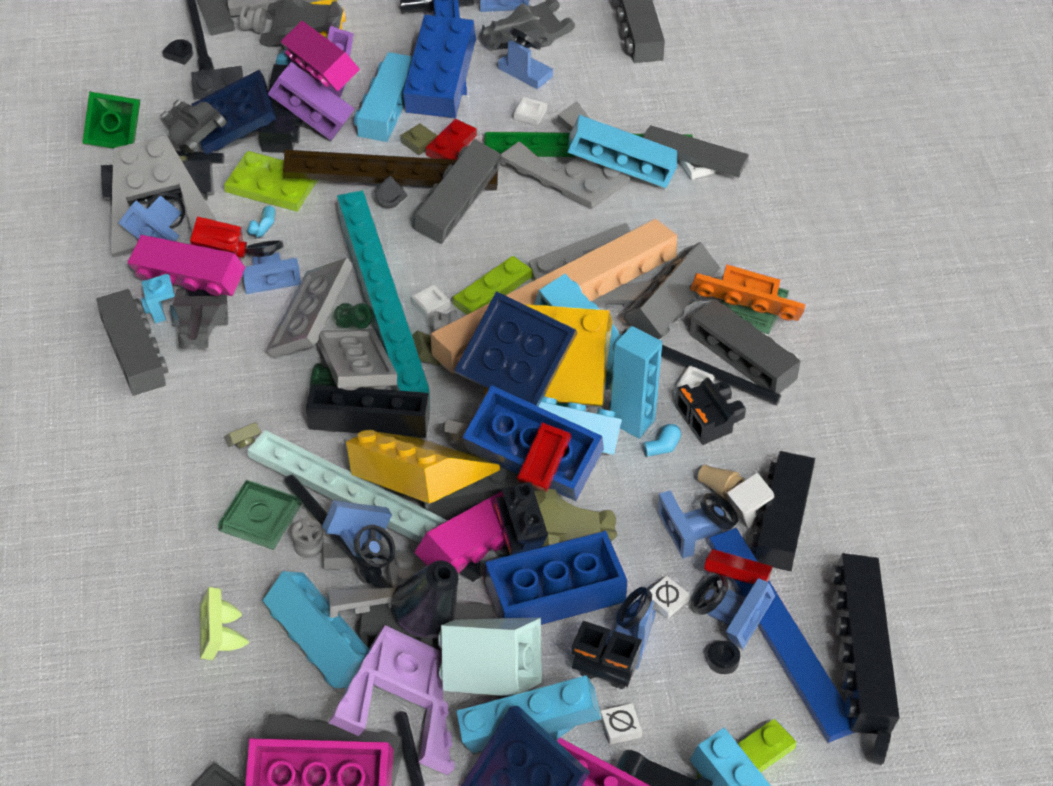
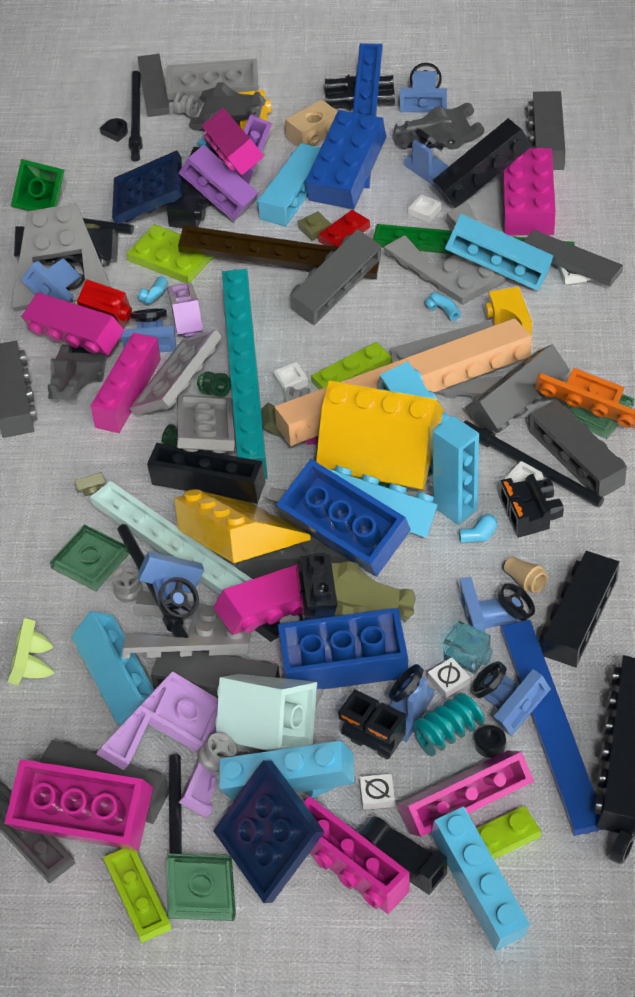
camera: 15 degrees right, 0 degrees up
(155, 292) = (38, 348): medium azure bracket -> none
(191, 123) = (106, 195): dark grey animal -> none
(212, 80) = (134, 157): black plate -> none
(257, 323) = (125, 382): none -> dark pink brick
(303, 238) = (185, 309): none -> lavender slope
(390, 193) = (274, 273): black tile -> none
(393, 31) = (310, 124): none -> tan brick
(427, 599) = (212, 652): black cone -> none
(445, 704) = (217, 747): none -> light grey wheel
(516, 349) = (343, 428): dark blue plate -> none
(544, 457) = (347, 531): red tile -> none
(575, 209) = (444, 302): none -> medium azure arm
(584, 60) = (482, 163): none -> black brick
(635, 85) = (529, 193): none -> dark pink brick
(641, 207) = (507, 305): none -> yellow arch
(678, 644) = (446, 721): none -> teal piece
(681, 563) = (468, 647): none -> clear light blue brick
(717, 708) = (468, 789): none -> dark pink brick
(737, 567) = (519, 657): red tile -> none
(749, 497) = (547, 591): white panel -> none

